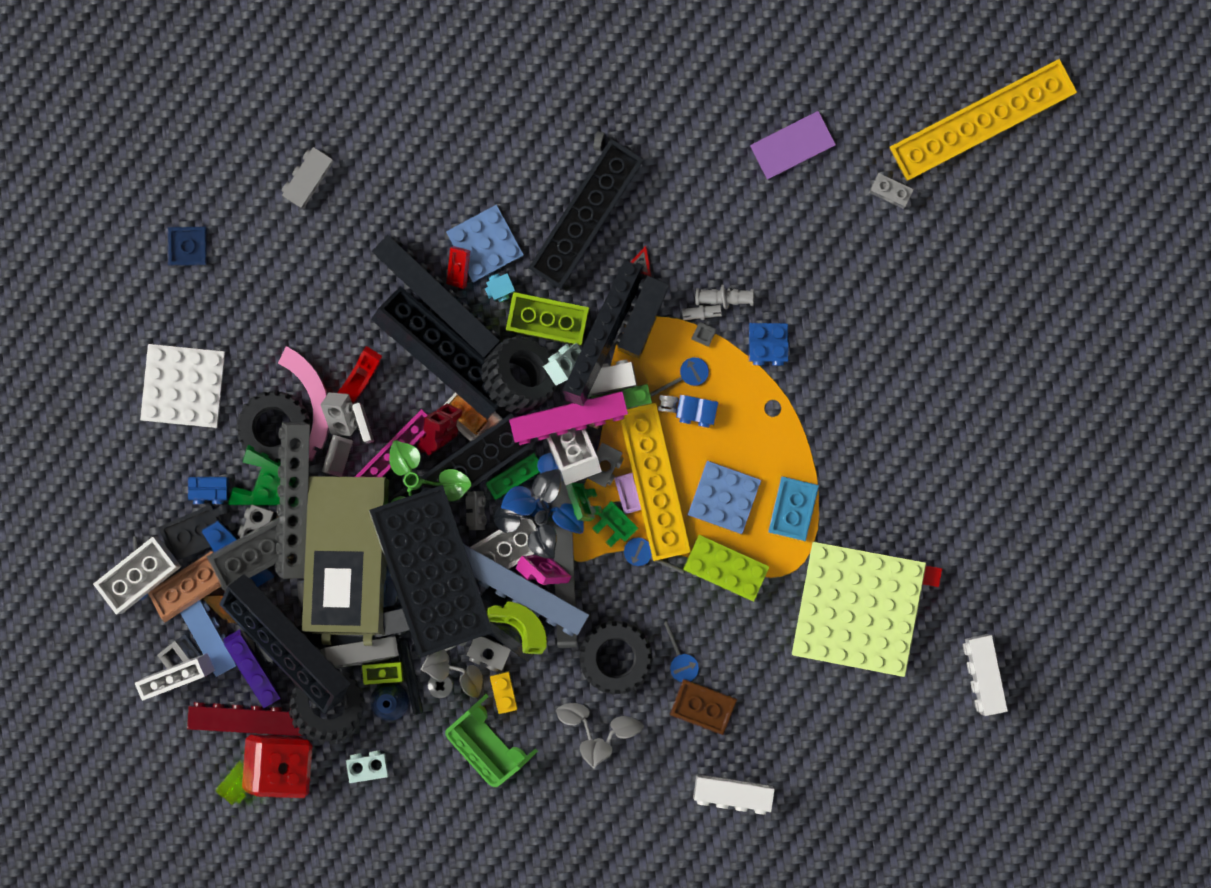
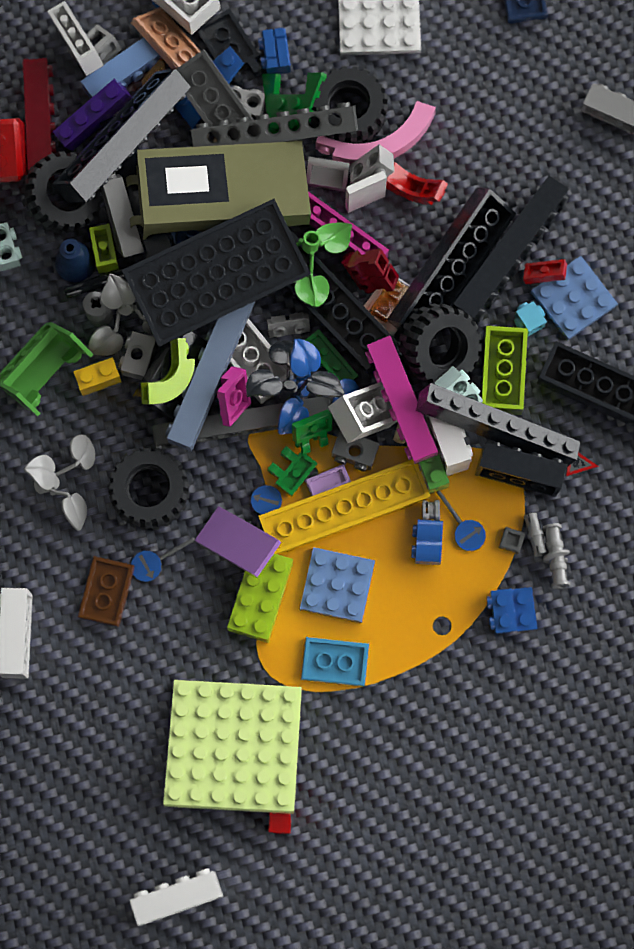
camera: 85 degrees right, 10 degrees down
(676, 582) = (238, 541): none -> medium lavender tile

